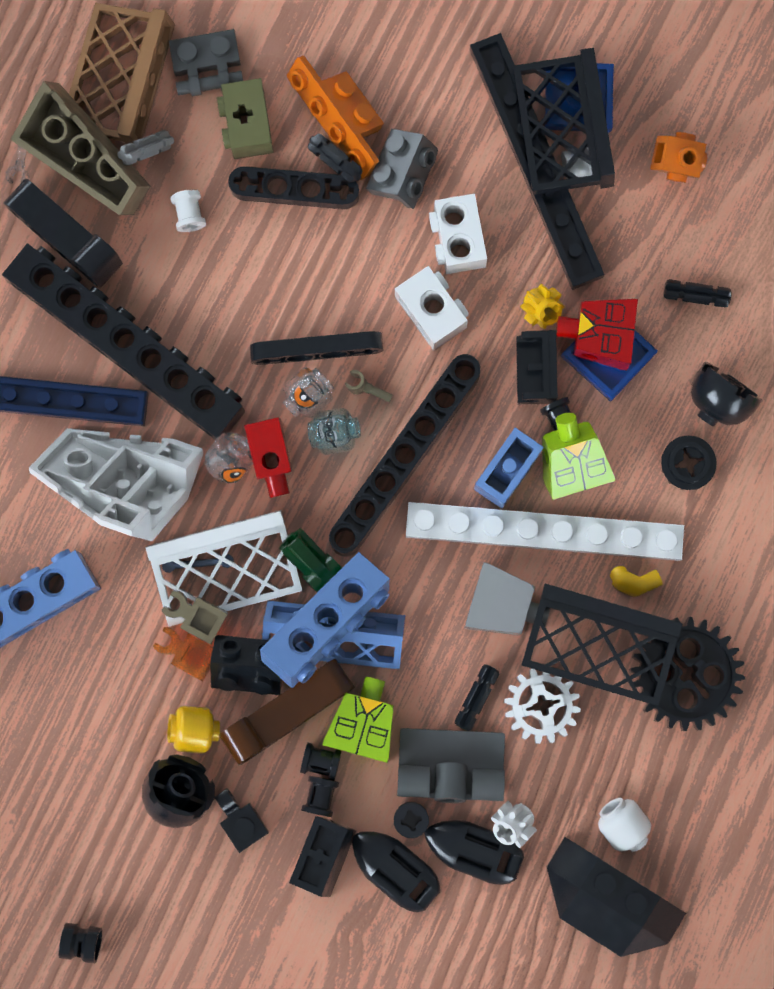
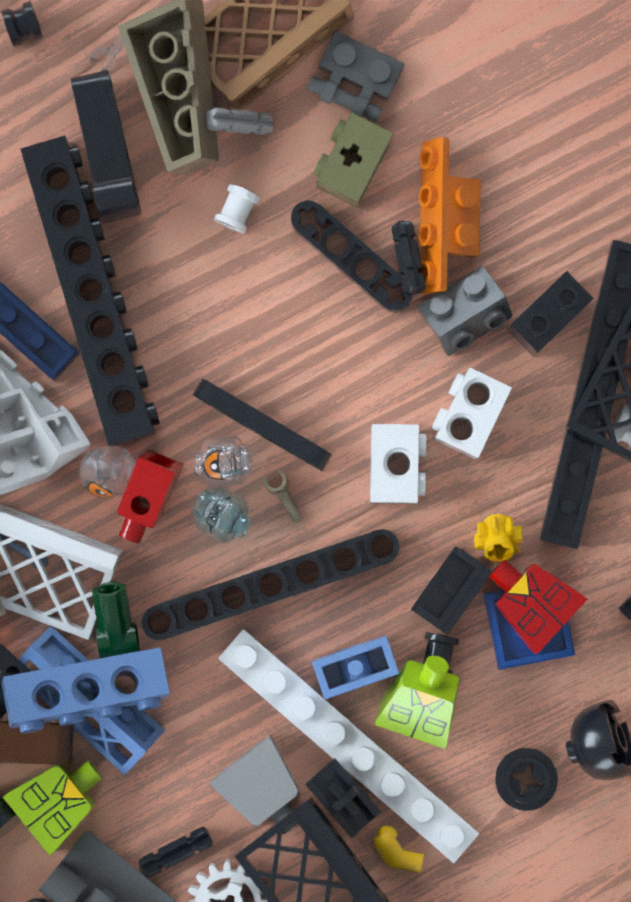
camera: 30 degrees right, 5 degrees up
(463, 126) = (550, 313): none -> black brick
(568, 568) = (343, 797): none -> black hips

